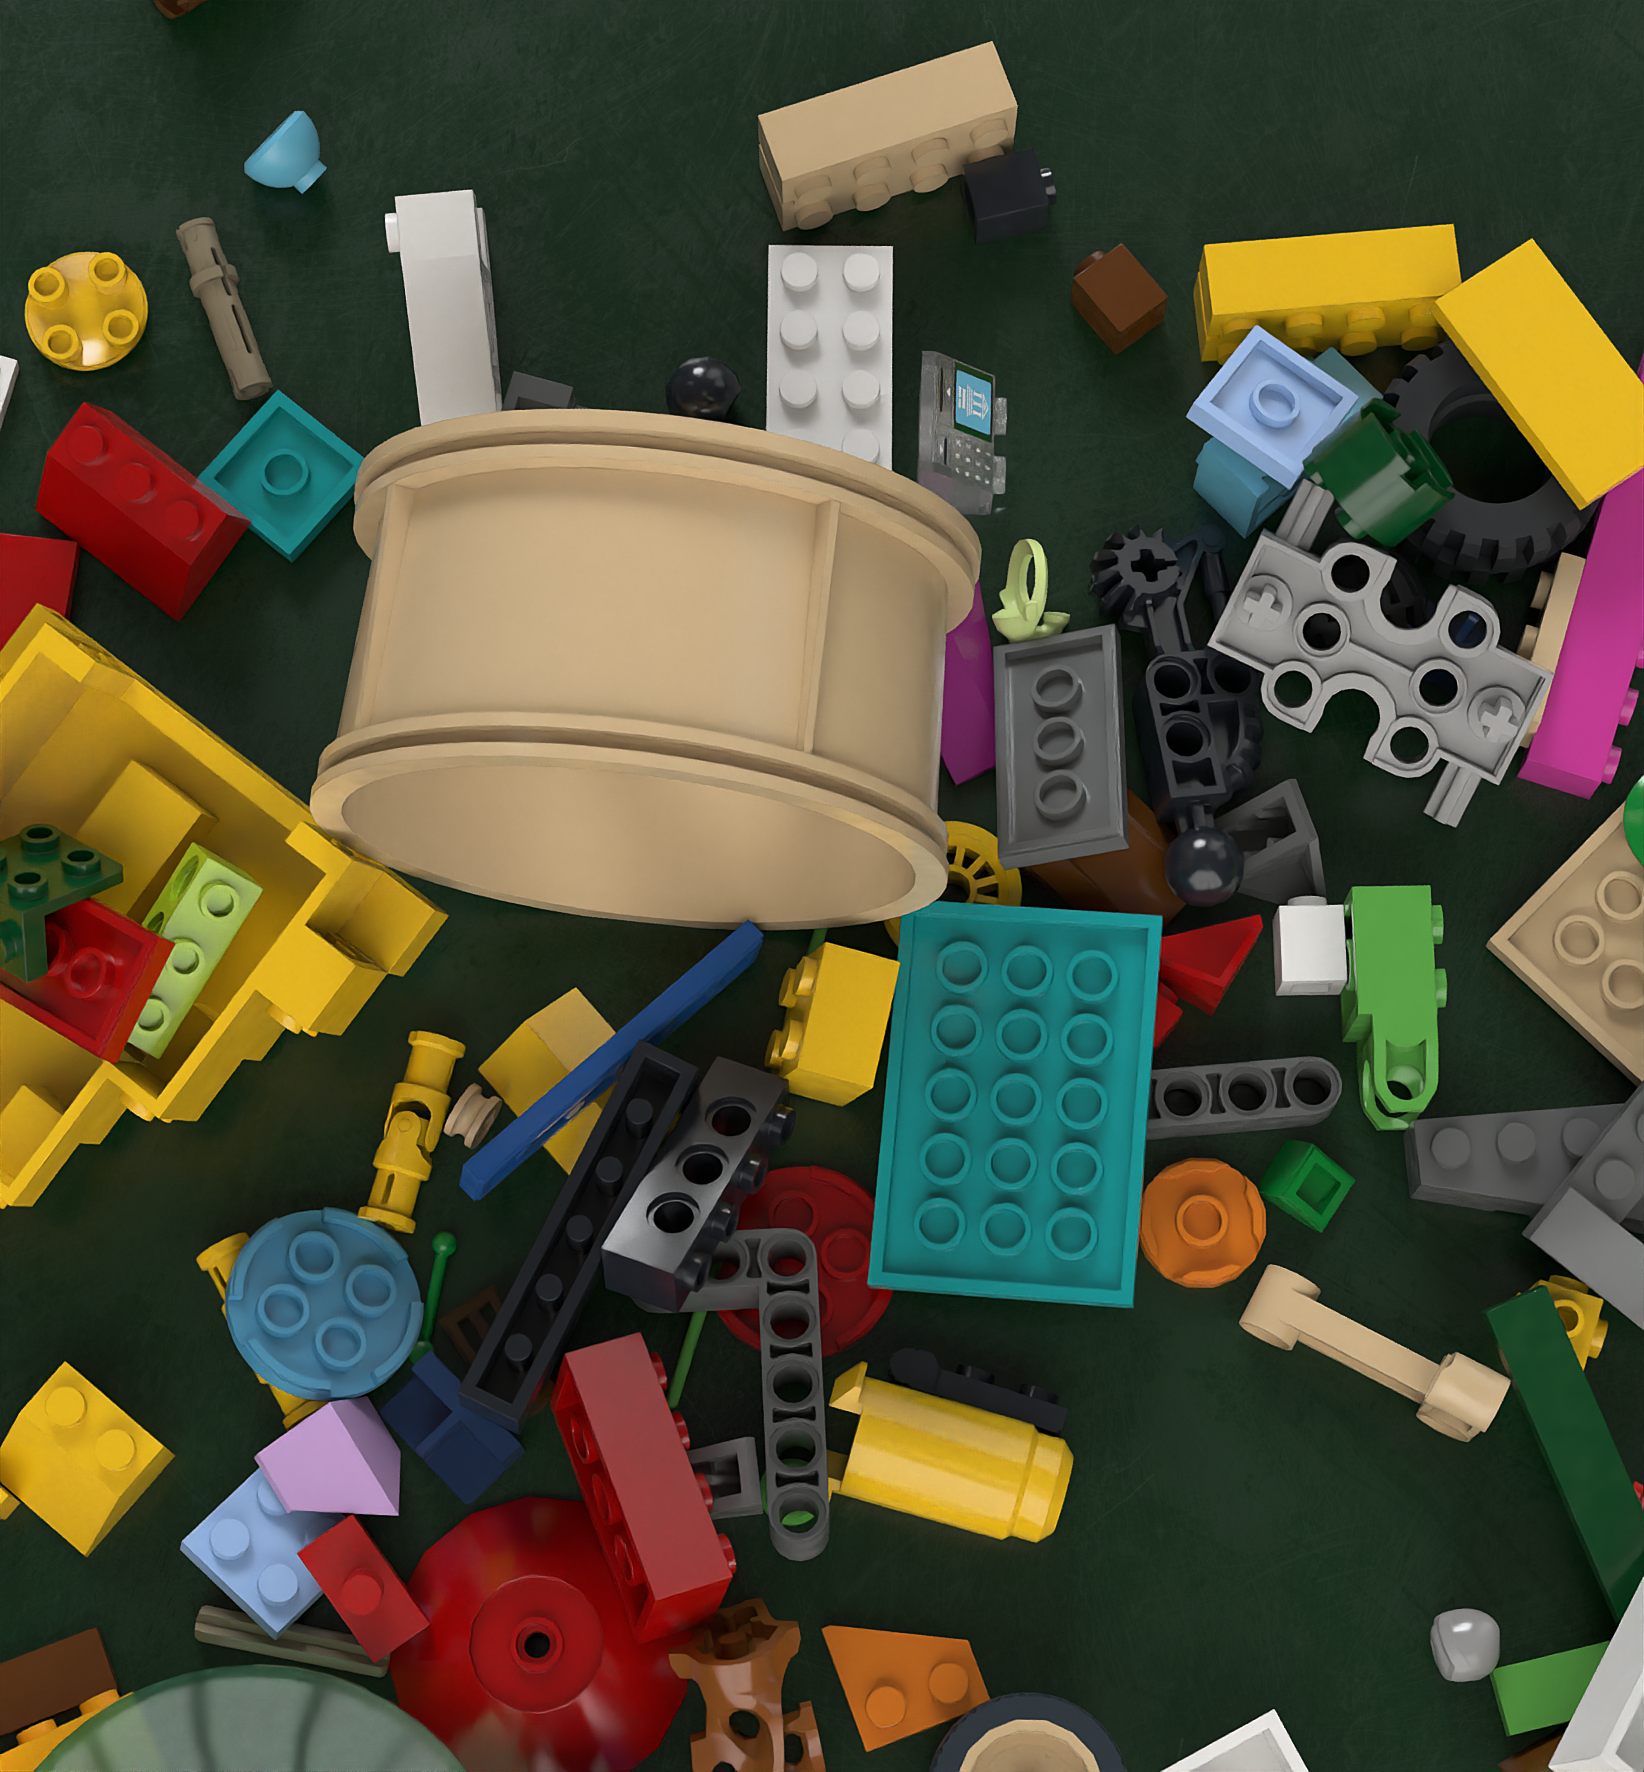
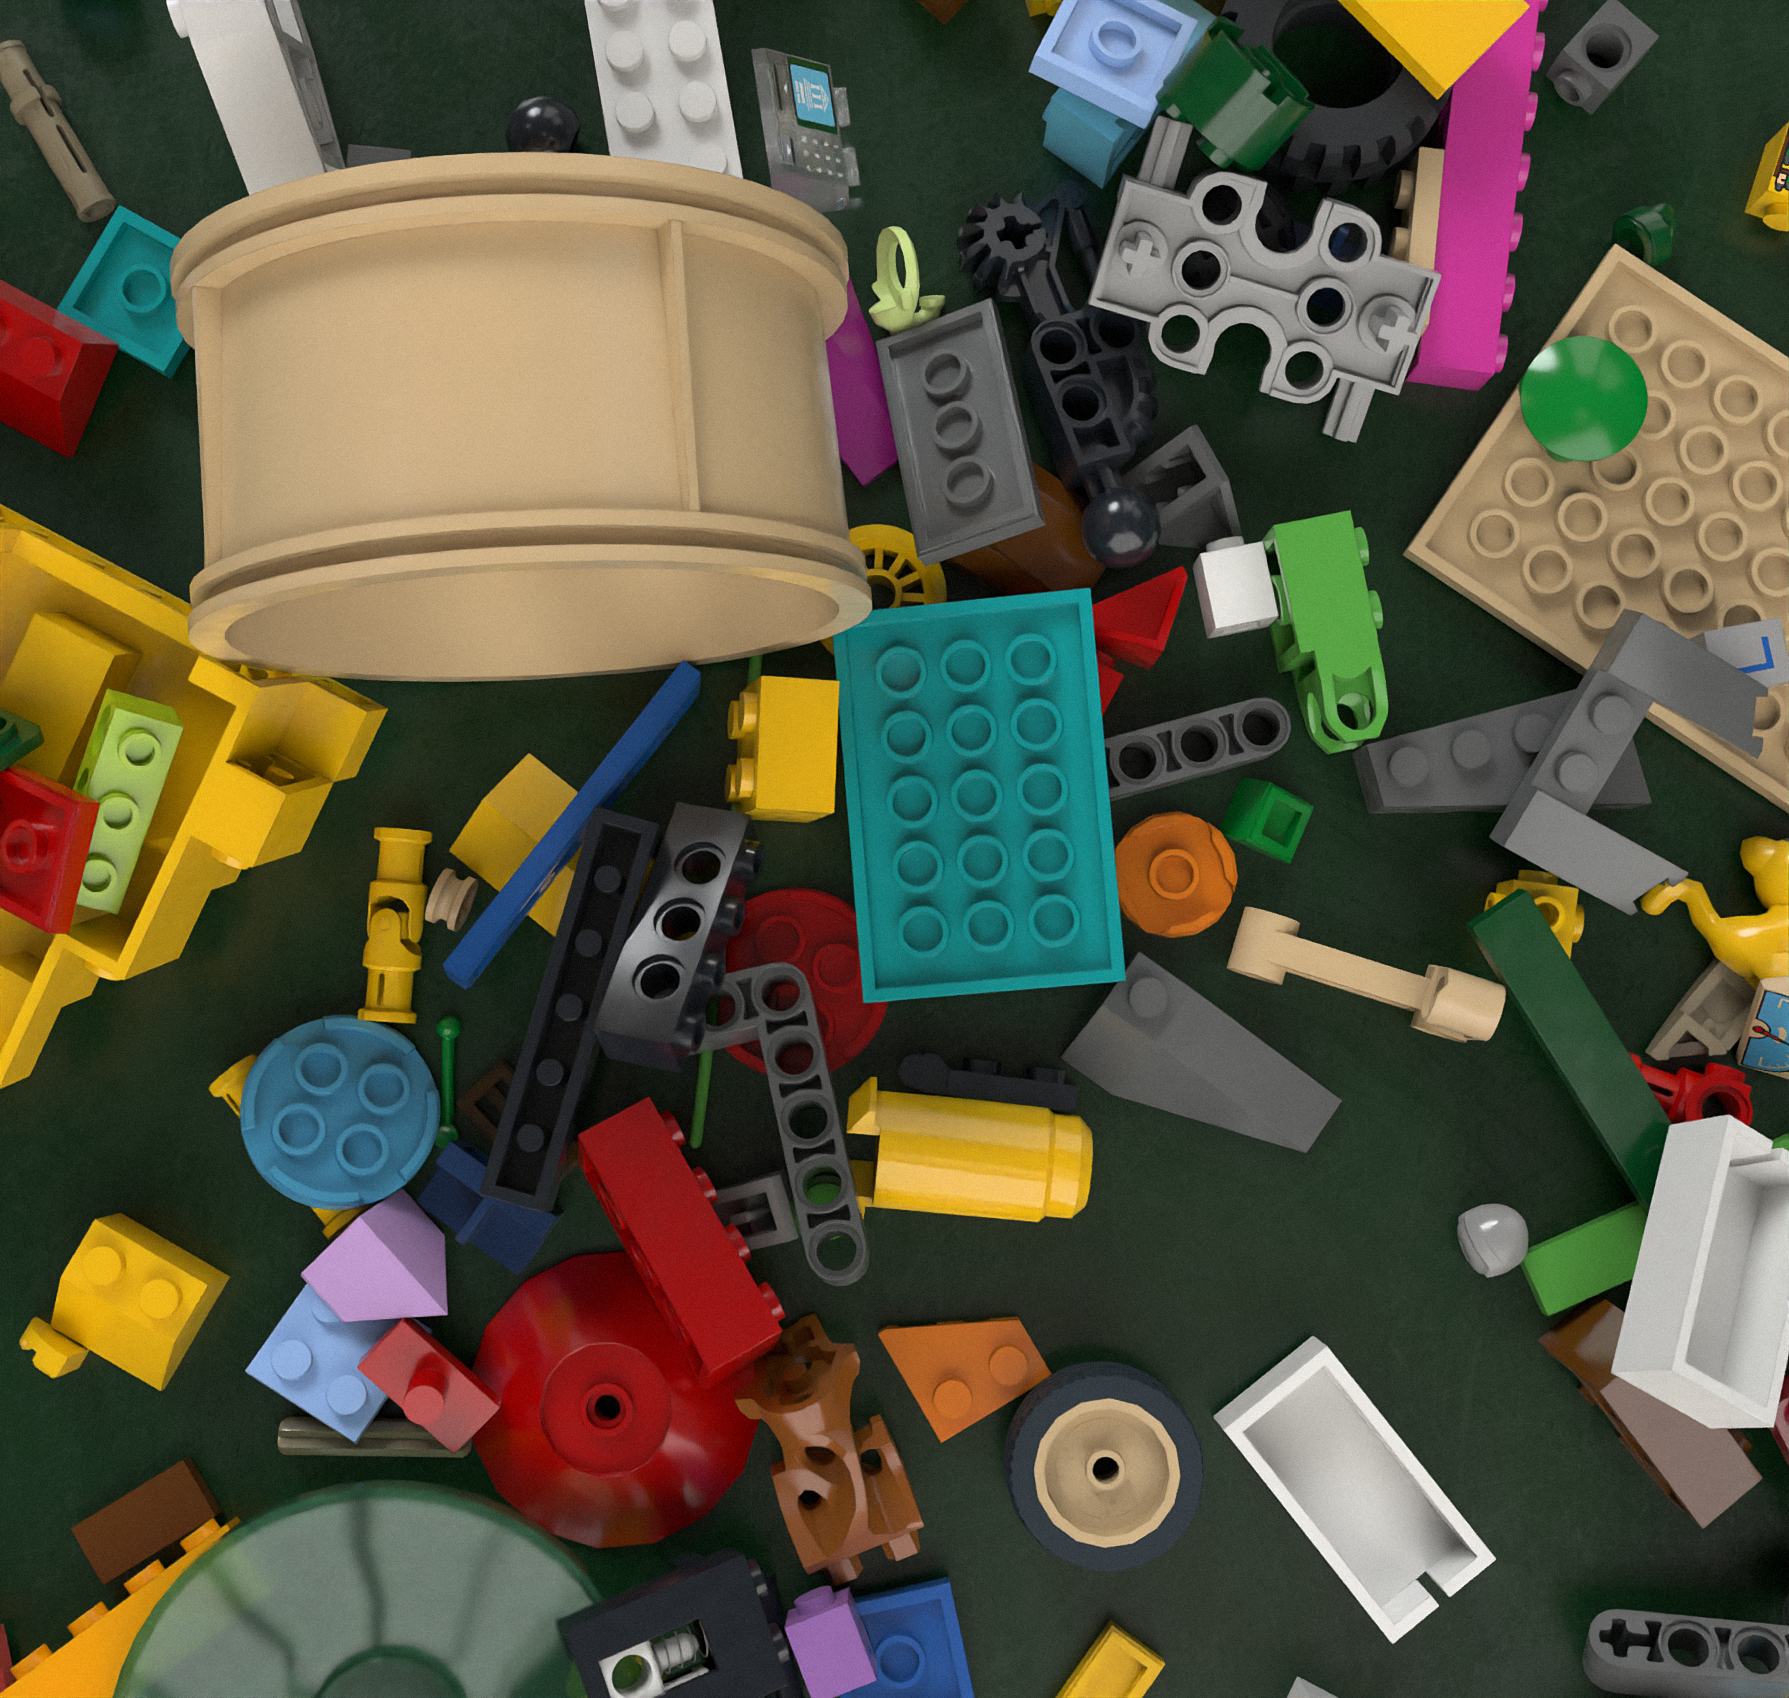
camera: 10 degrees left, 10 degrees up
(1181, 1402) = (1186, 1056): none -> dark grey wedge

